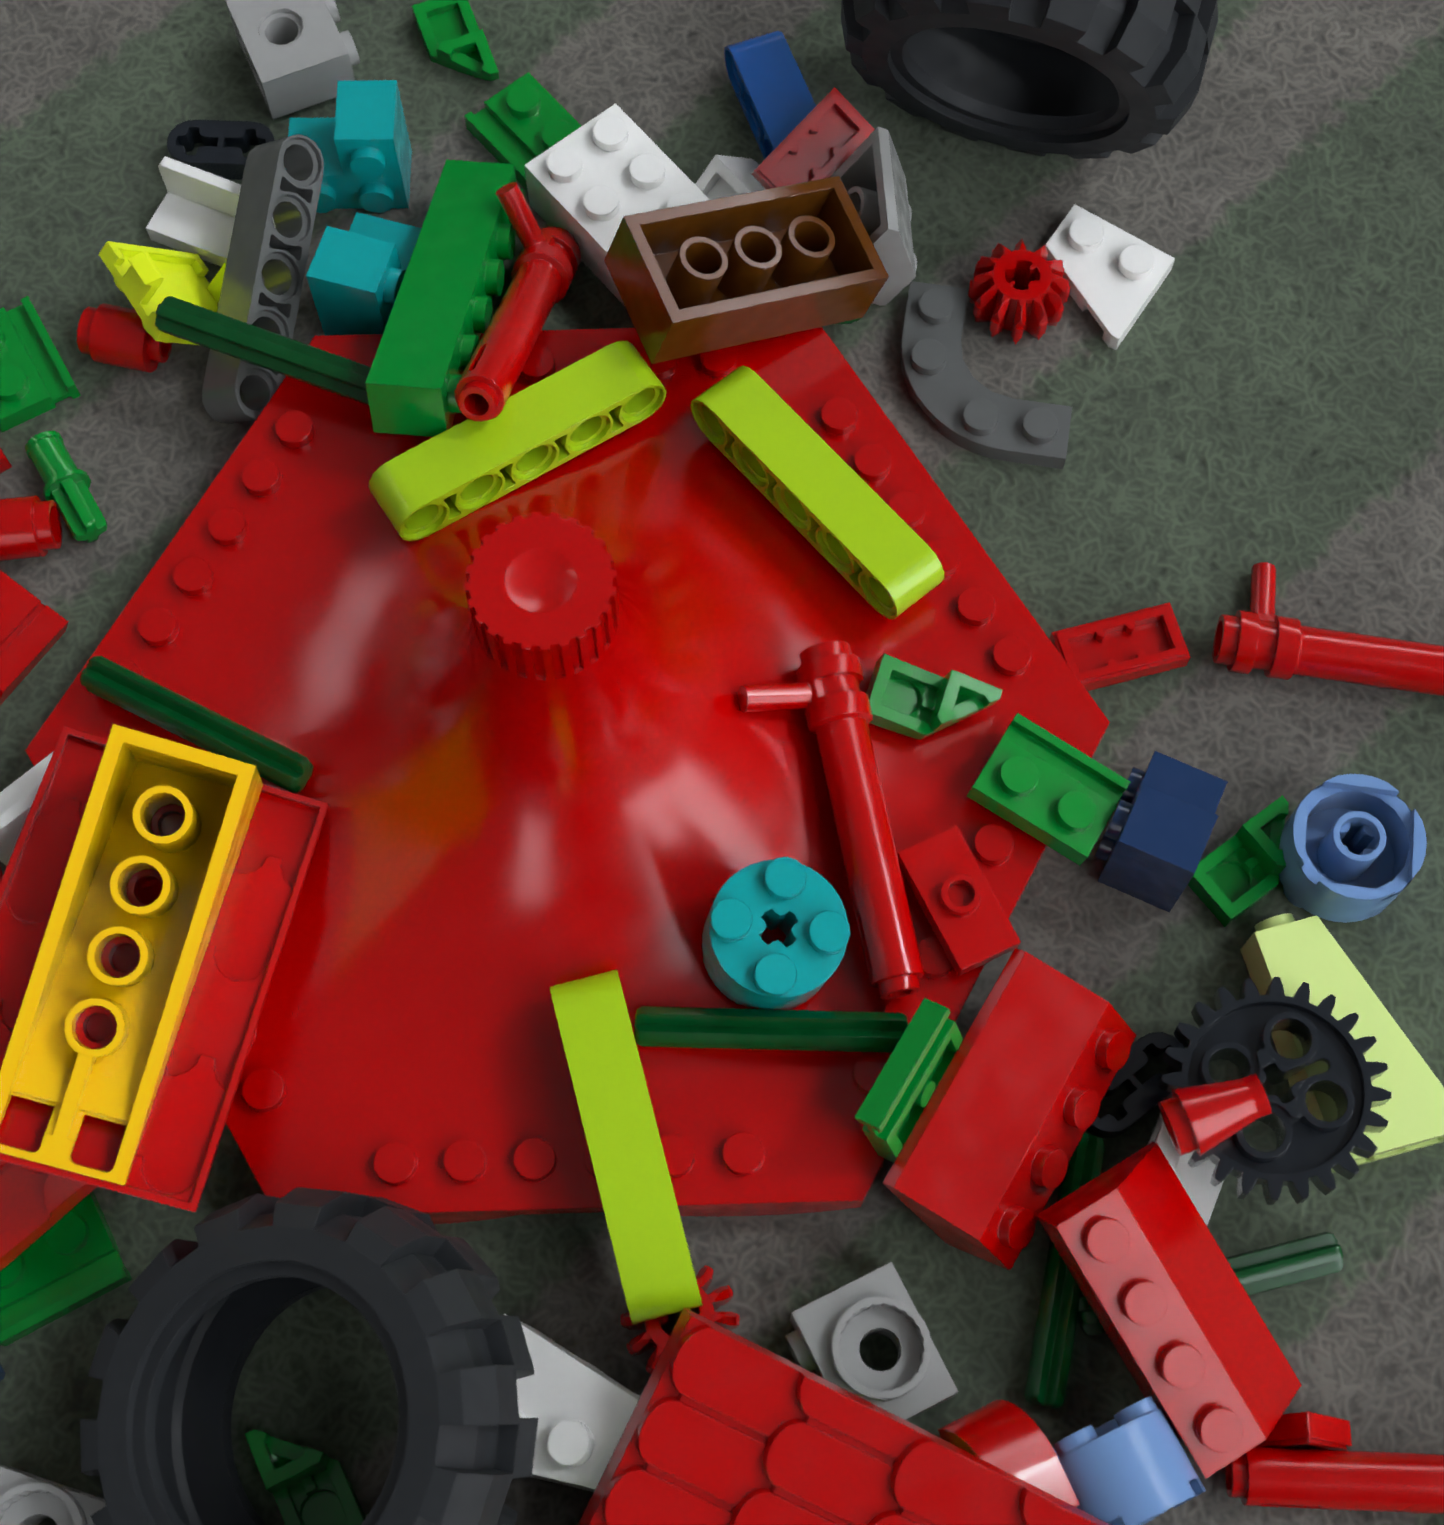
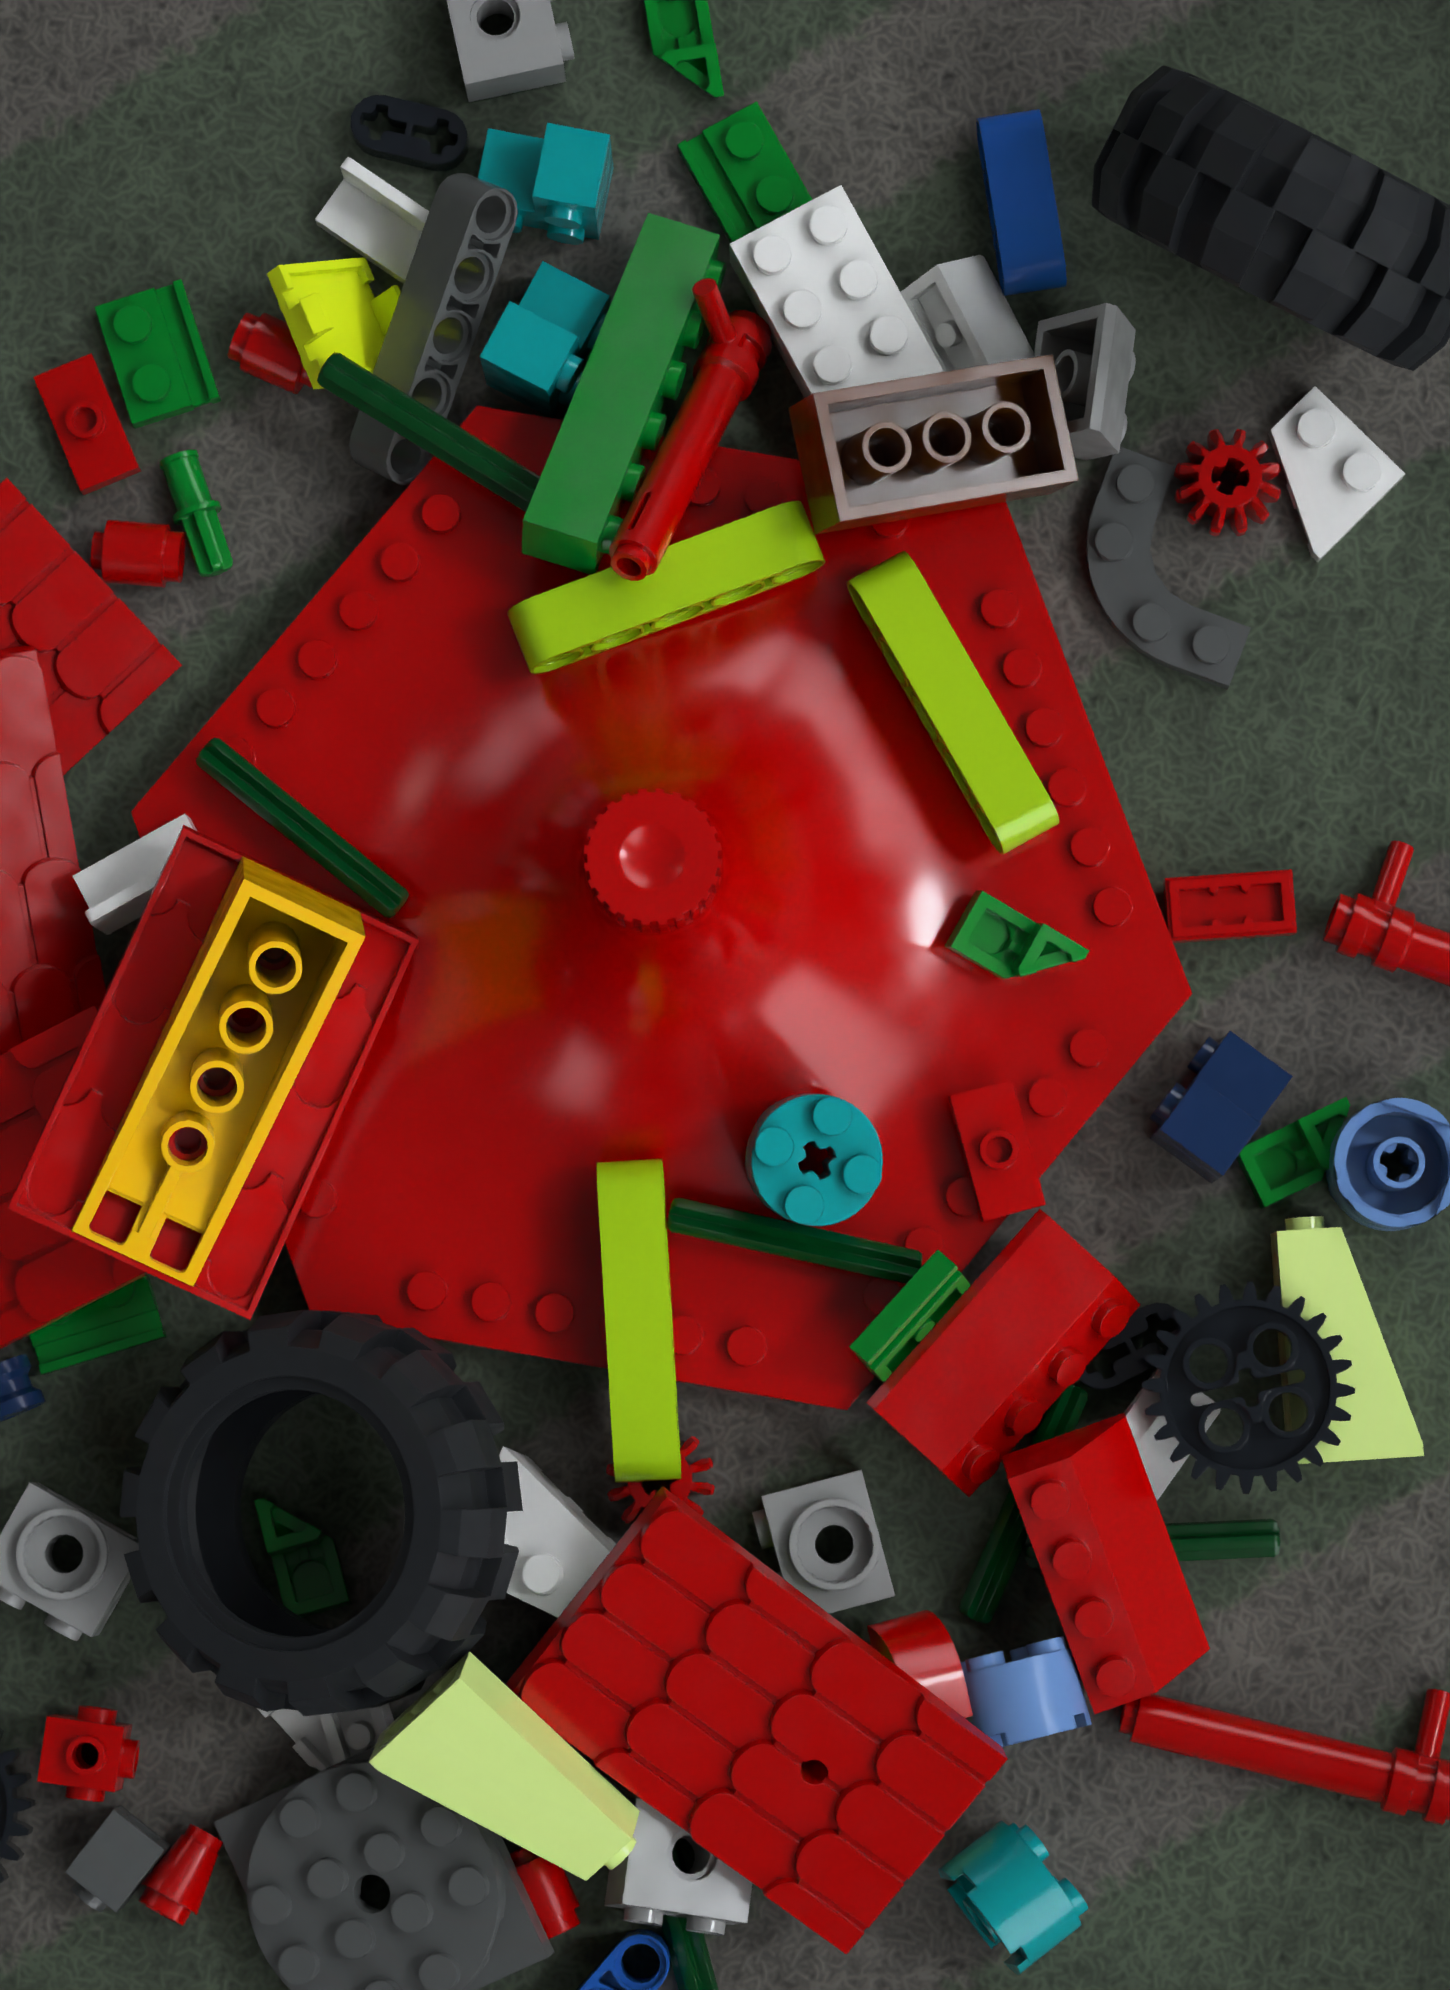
camera: 15 degrees right, 15 degrees up
(816, 144) = (1041, 285): red plate -> none
(840, 719) = (922, 953): red cylinder -> none
(1048, 789) = (1111, 1056): green plate -> none
(1212, 1112) = (1178, 1403): red cone -> none
(1310, 1429) = (1204, 1691): red tile -> none

